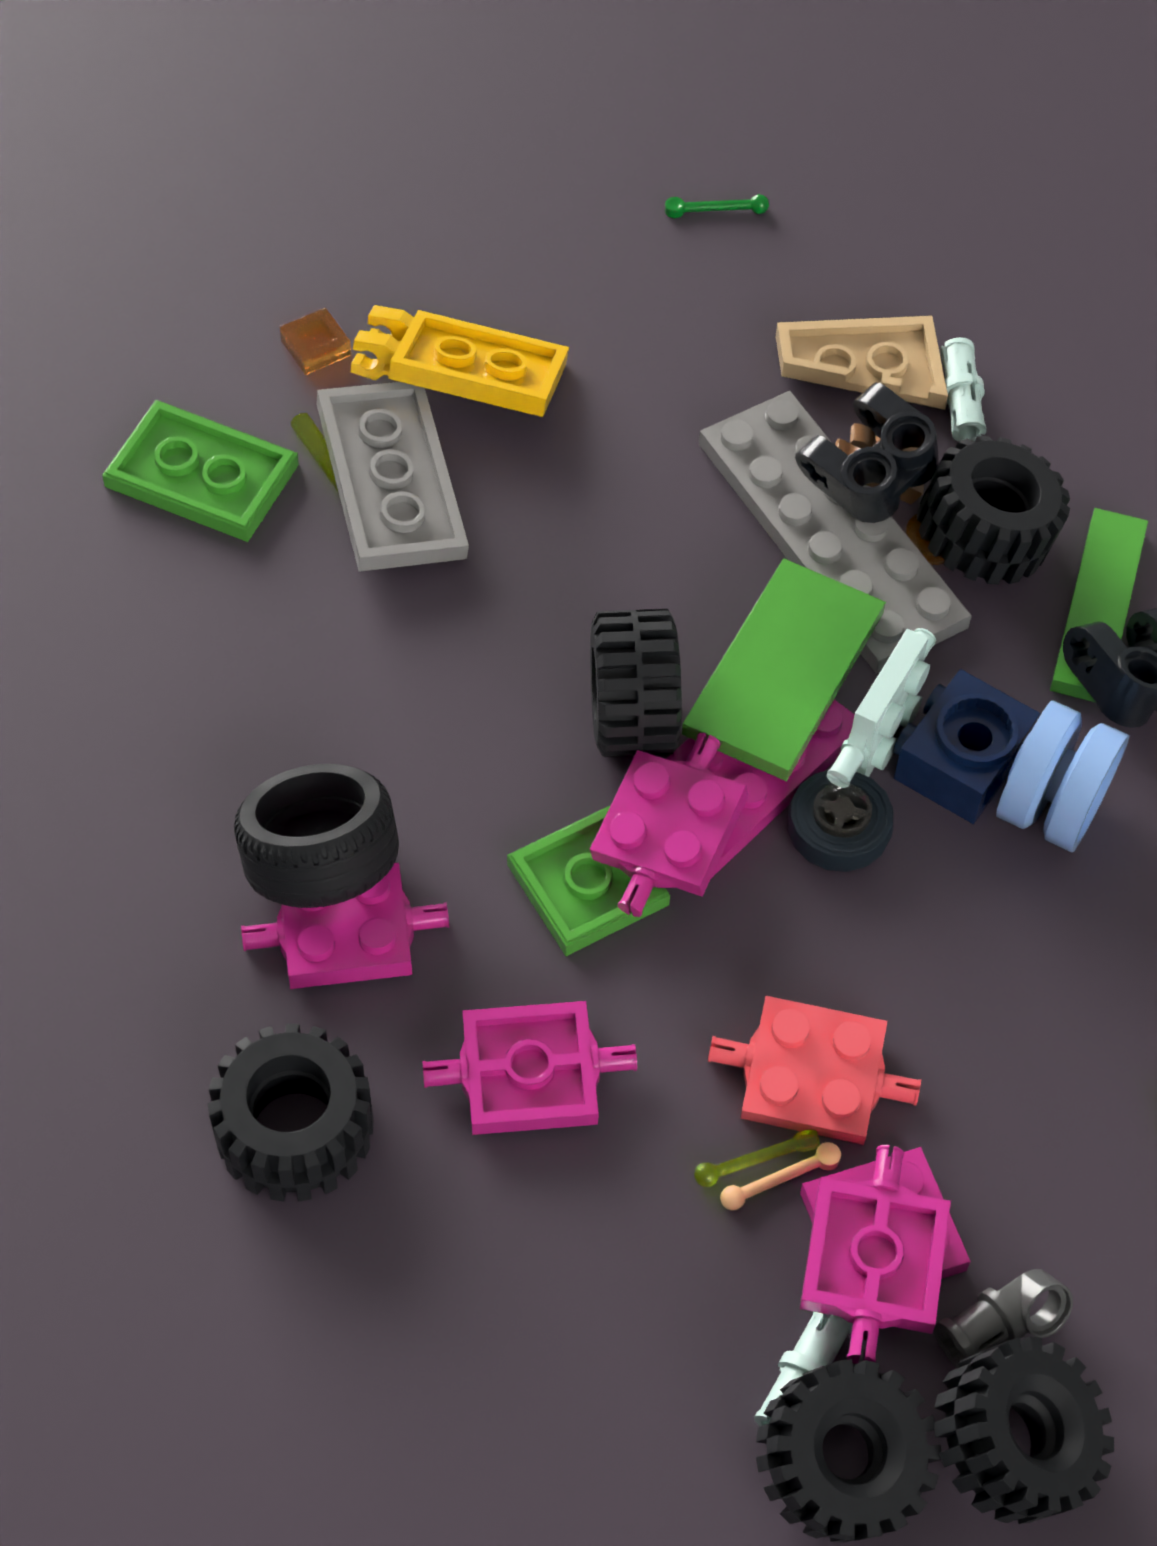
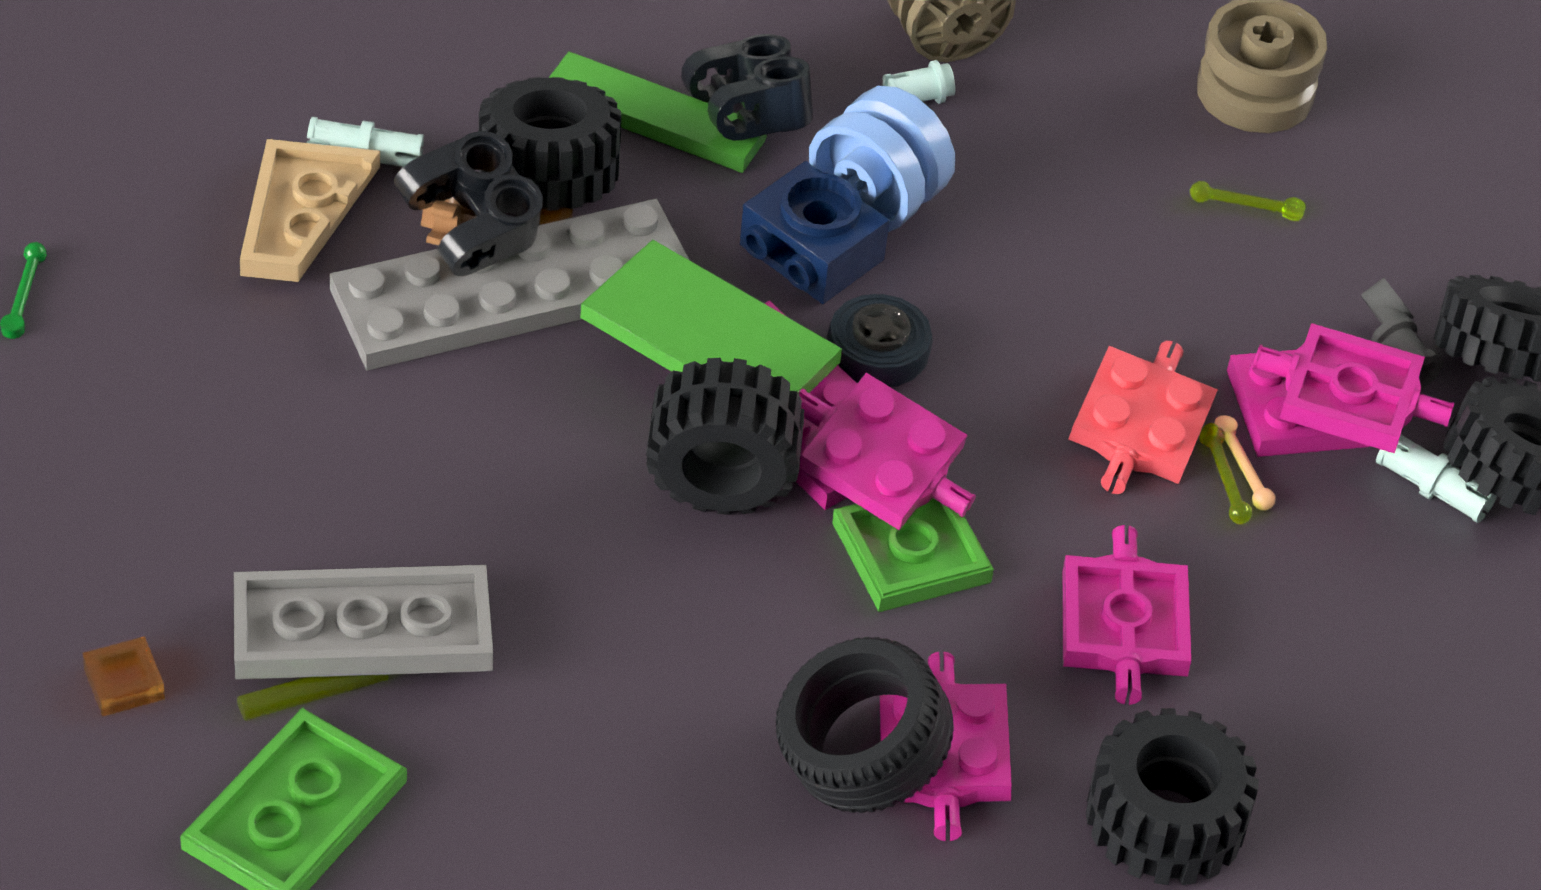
camera: 85 degrees left, 10 degrees down
(461, 359) = (213, 534): yellow tile -> none
(885, 707) = (779, 262): light aqua plate -> none

